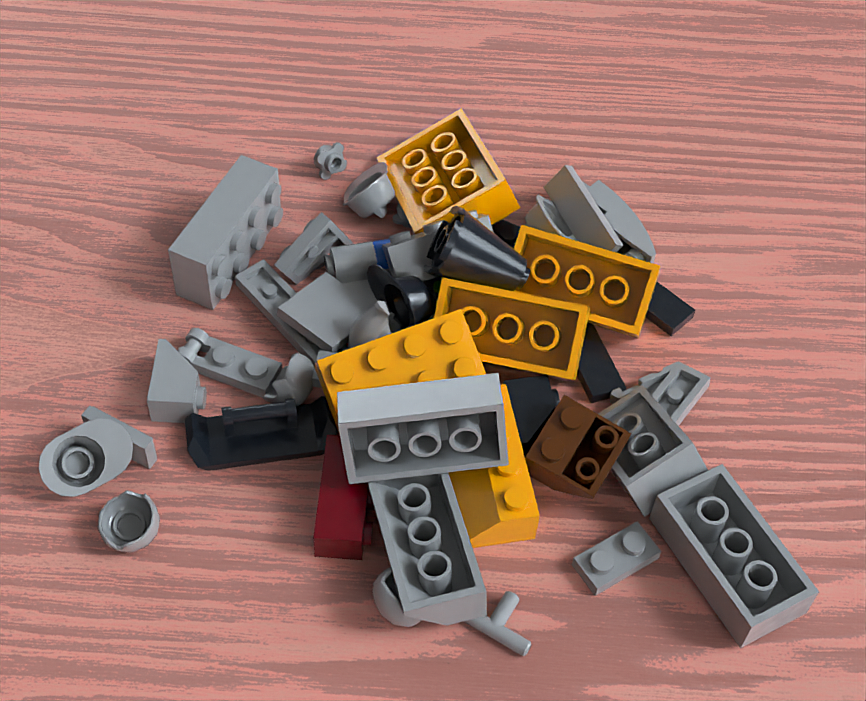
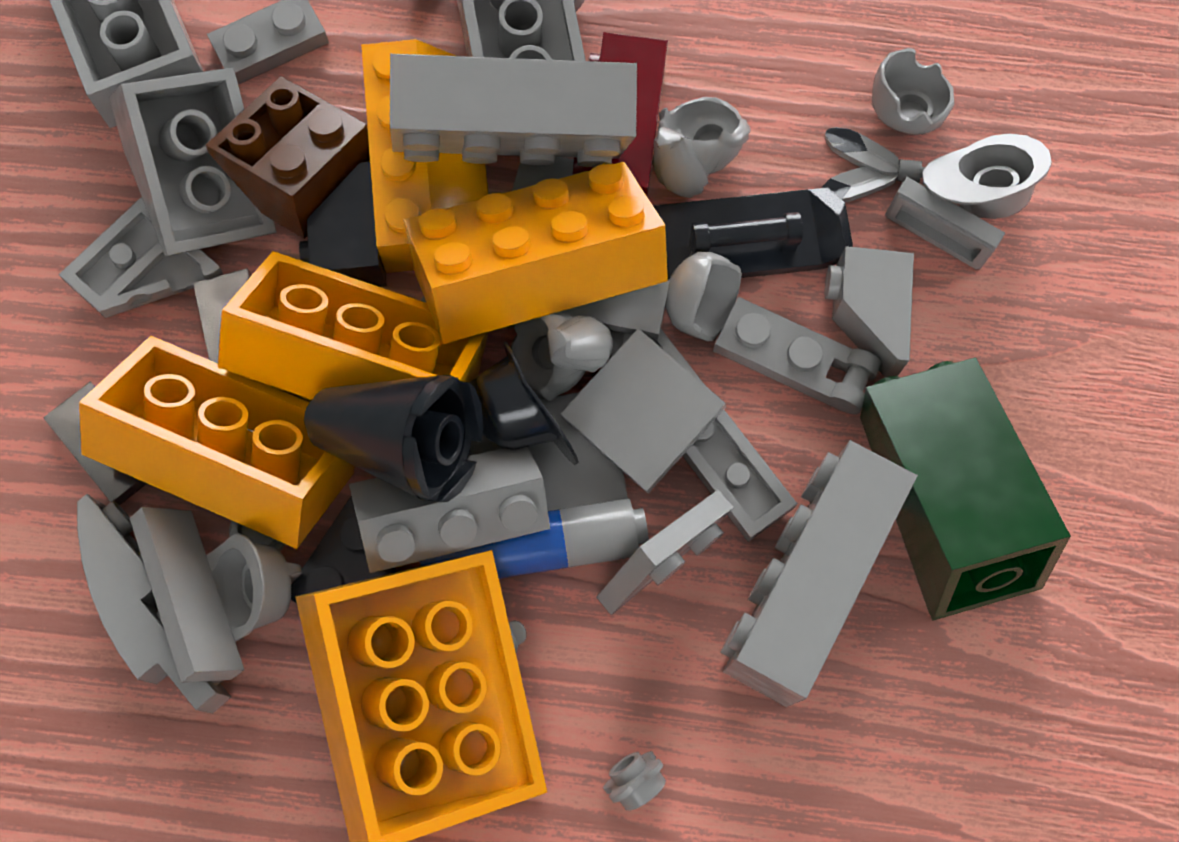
camera: 175 degrees left, 20 degrees up
(136, 282) = (978, 510): none -> dark green slope
(162, 485) = (876, 165): none -> light grey piece
(290, 478) = (696, 142): none -> light grey hair
(370, 192) = (568, 690): light grey piece -> none

